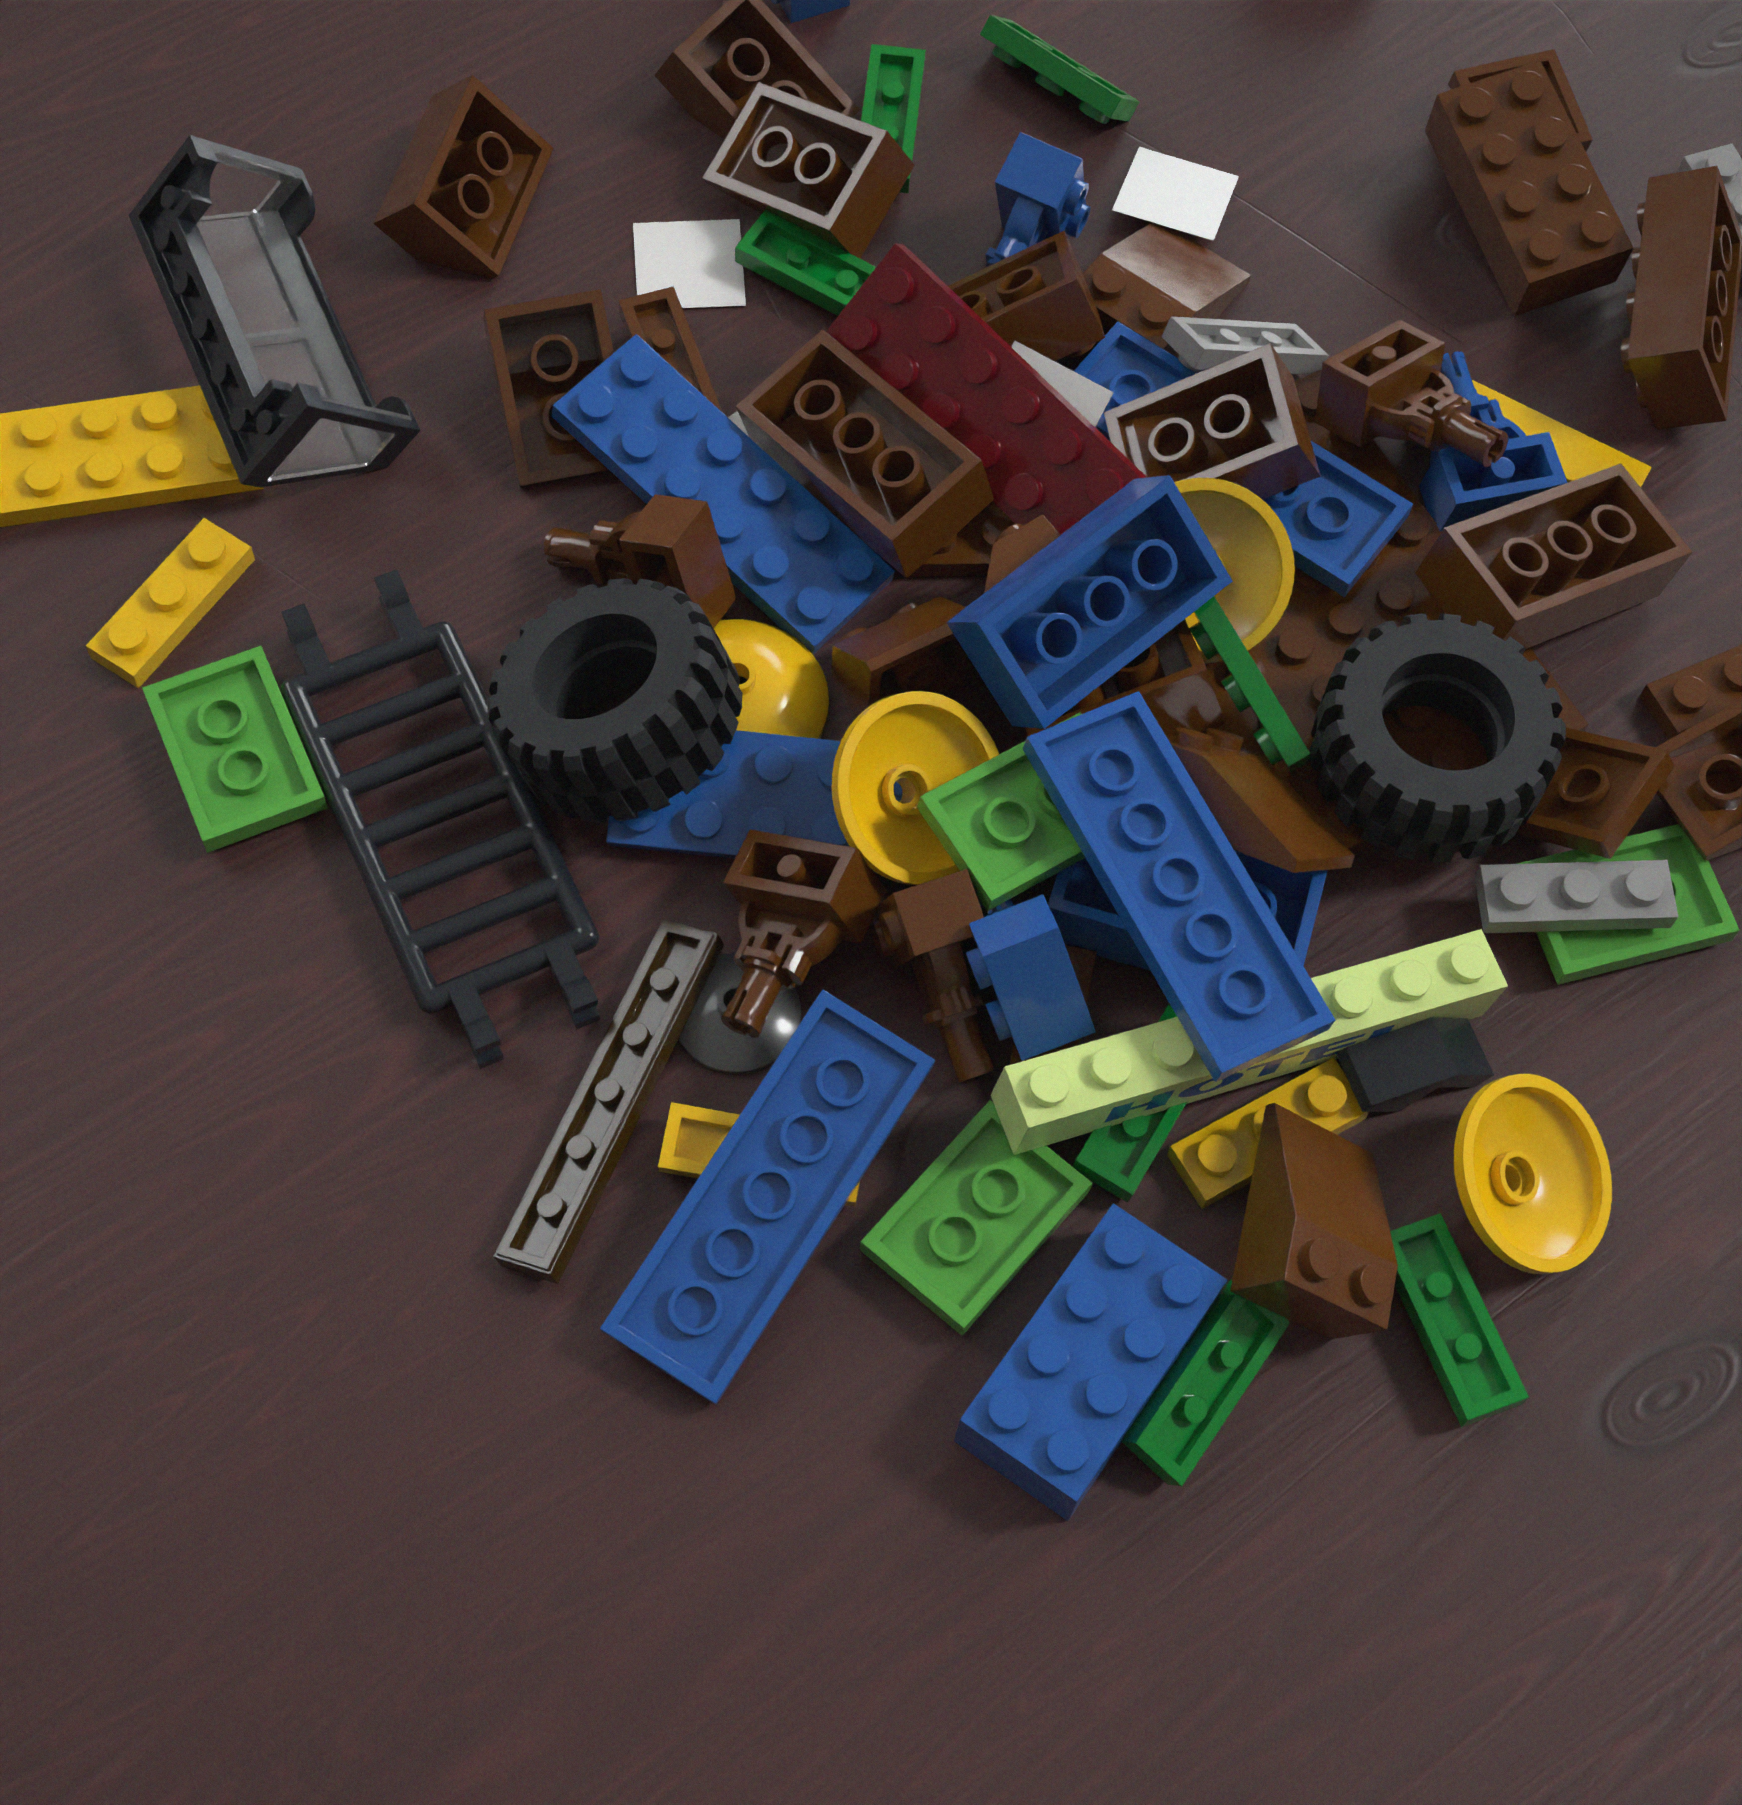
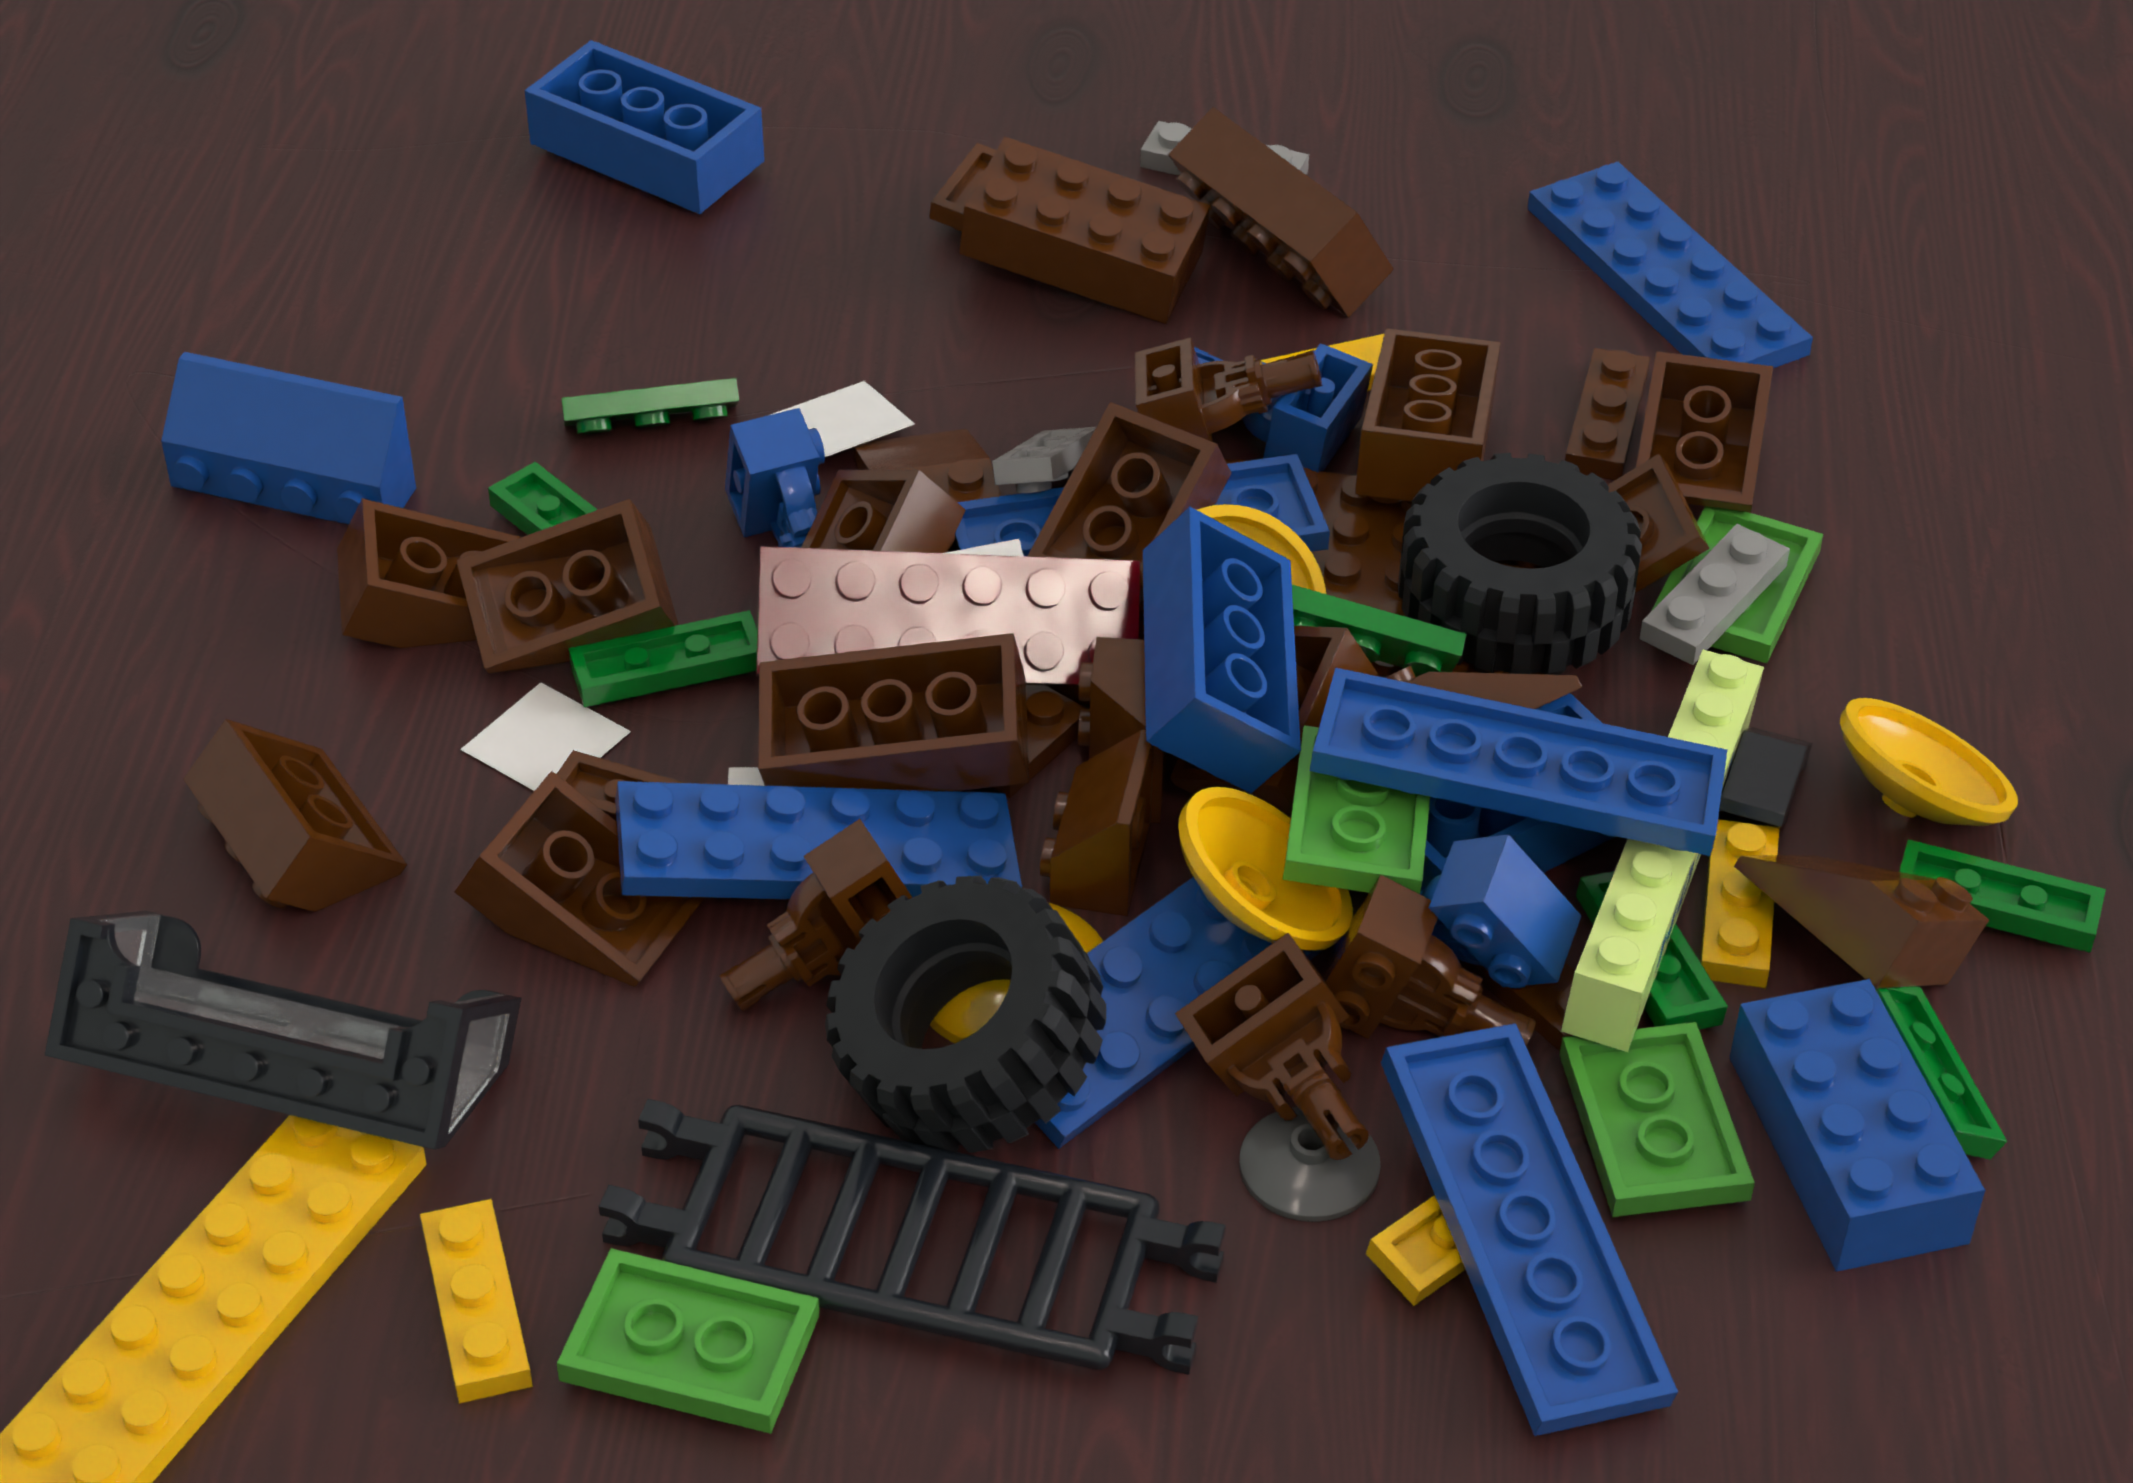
camera: 45 degrees left, 20 degrees down
(609, 1102) = (1320, 1296): tile -> none

